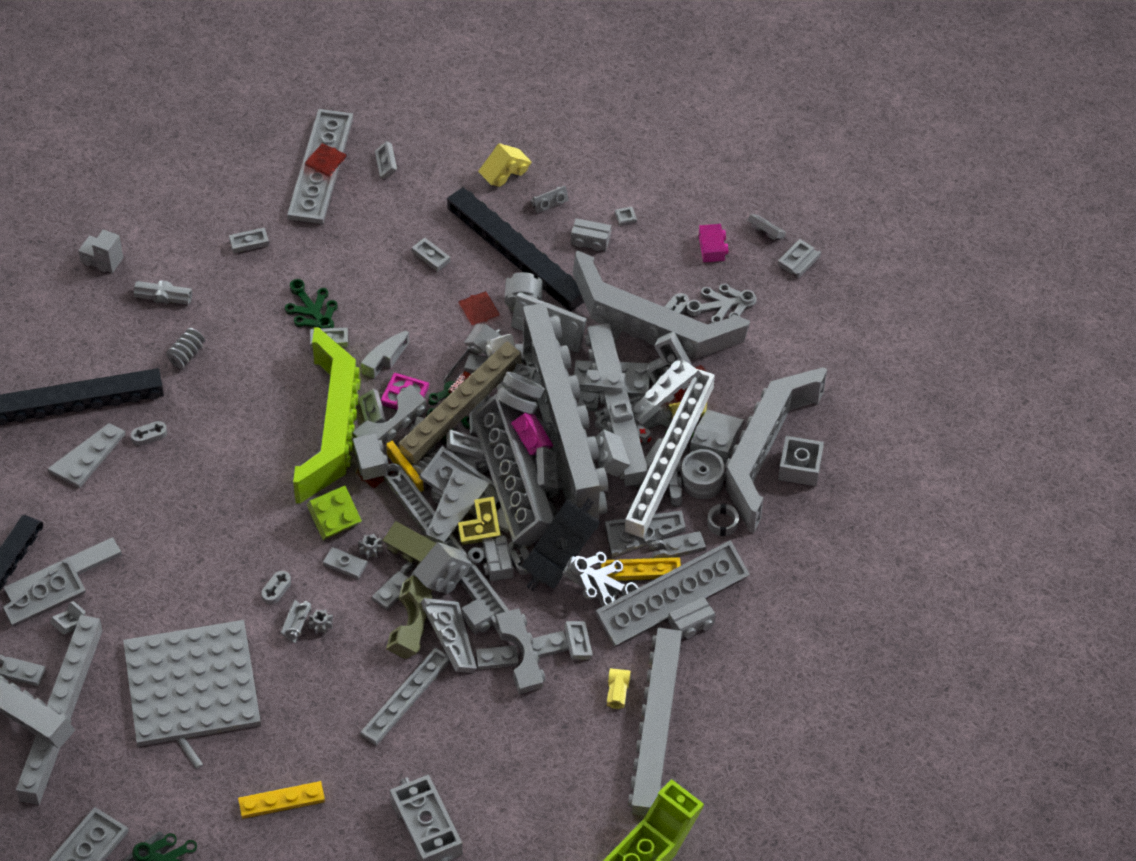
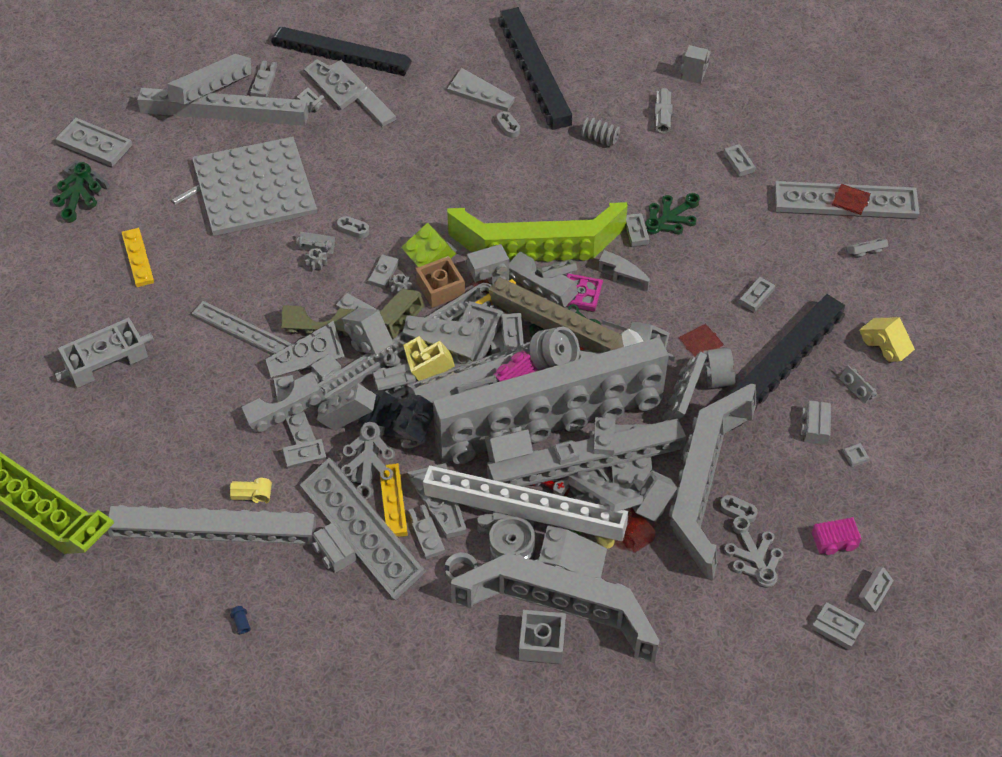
camera: 85 degrees right, 0 degrees up
(377, 507) = (440, 281): none -> medium nougat brick
(539, 590) = (346, 407): none -> light grey brick
(761, 699) = (239, 615): none -> dark blue pin

